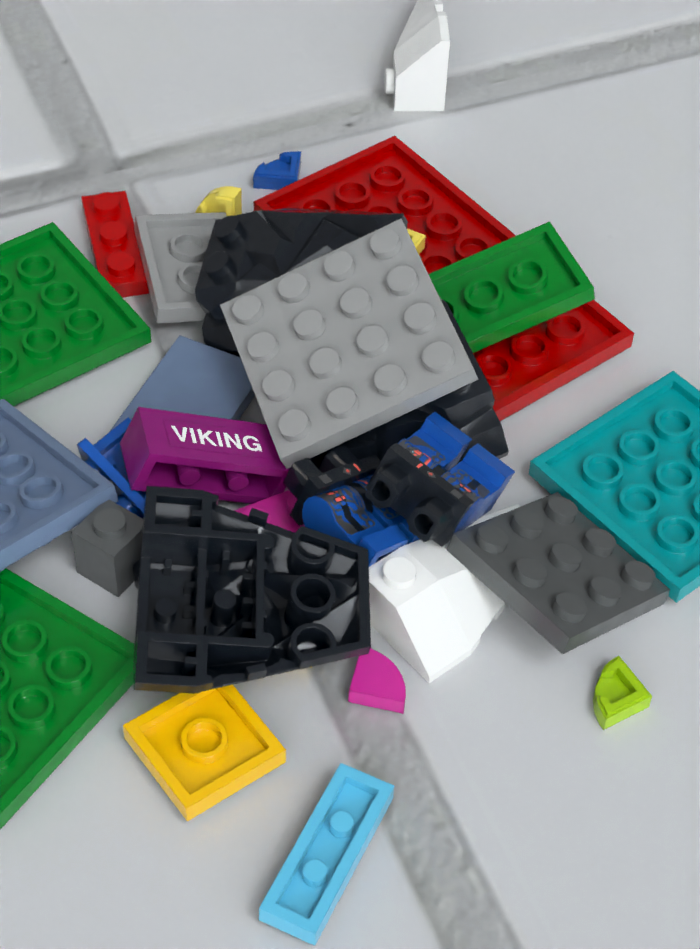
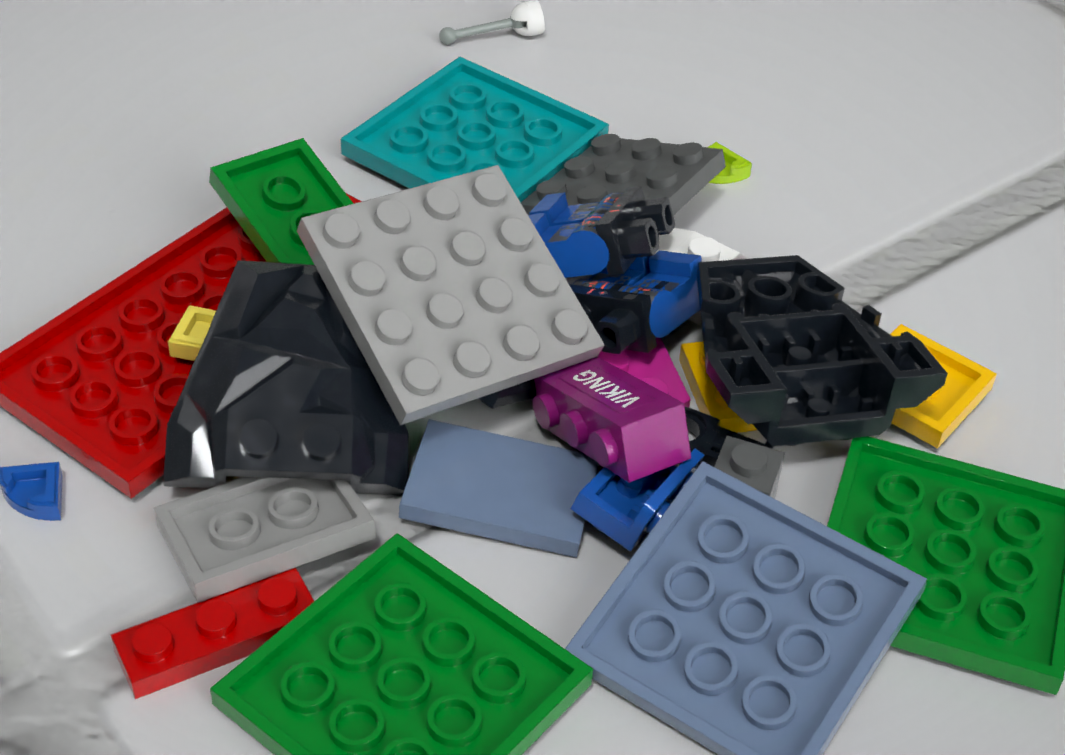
camera: 105 degrees left, 5 degrees down
(222, 199) = (135, 522): light yellow tile -> none
(326, 854) = (970, 294): medium azure plate -> none

